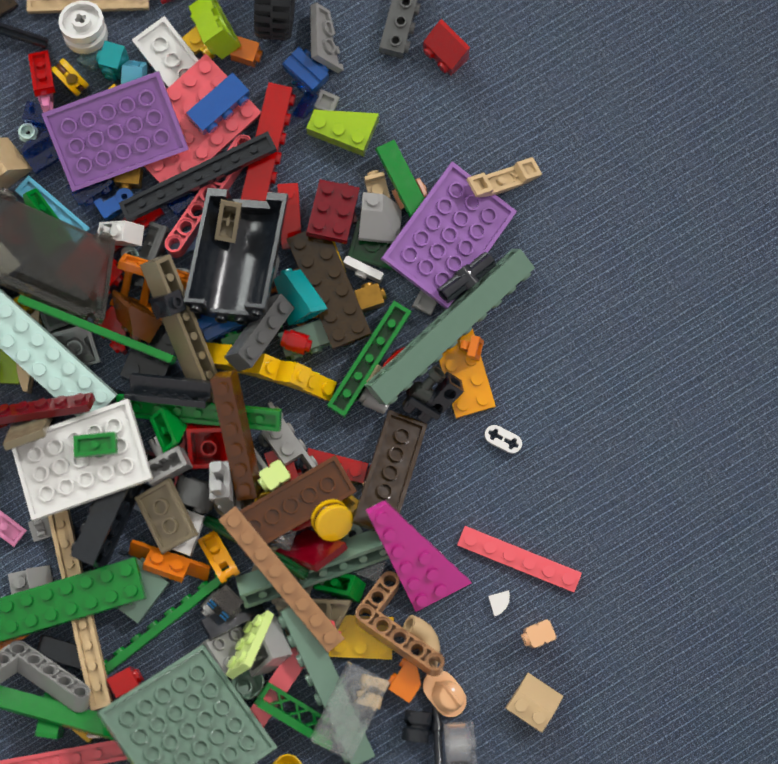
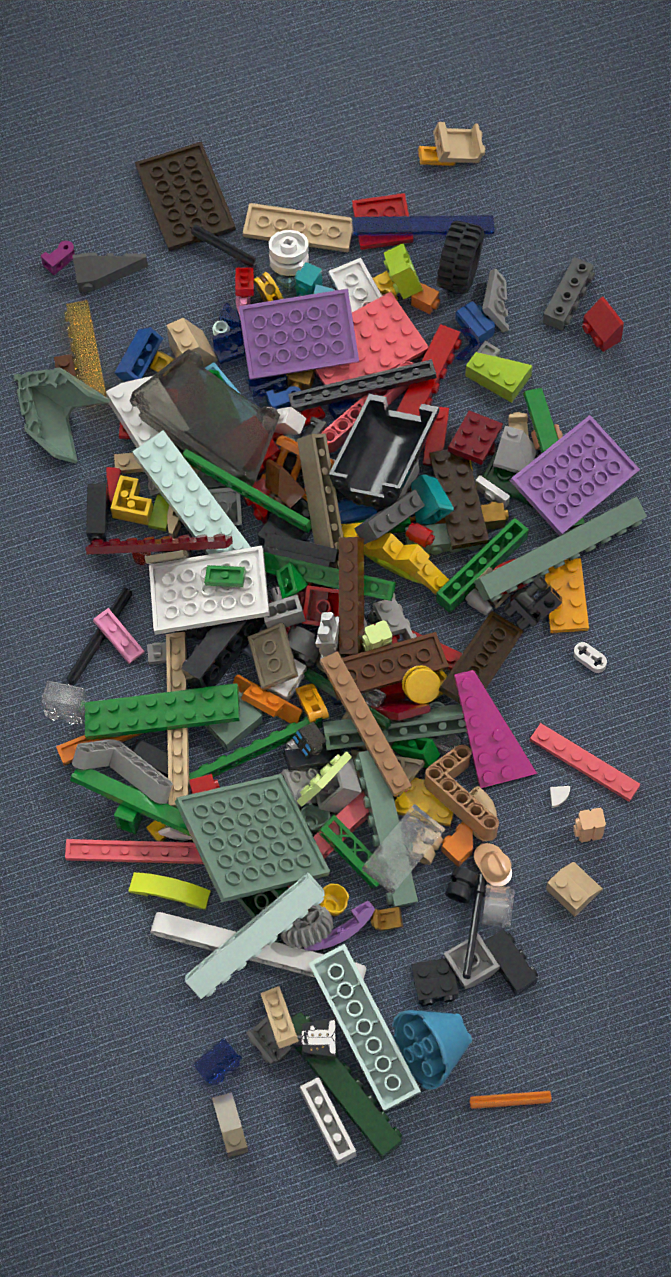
camera: 15 degrees right, 15 degrees down
(29, 578) = (141, 688): light grey slope -> none
(167, 304) = (314, 474): black bracket -> none
(218, 104) = (393, 330): blue brick -> none
(228, 221) = (382, 422): dark tan slope -> none
(424, 303) = (542, 530): light grey tile -> none
(466, 277) = (583, 510): black piece -> none
(473, 347) = (578, 571): orange tile -> none
(505, 179) = (634, 442): tan slope -> none

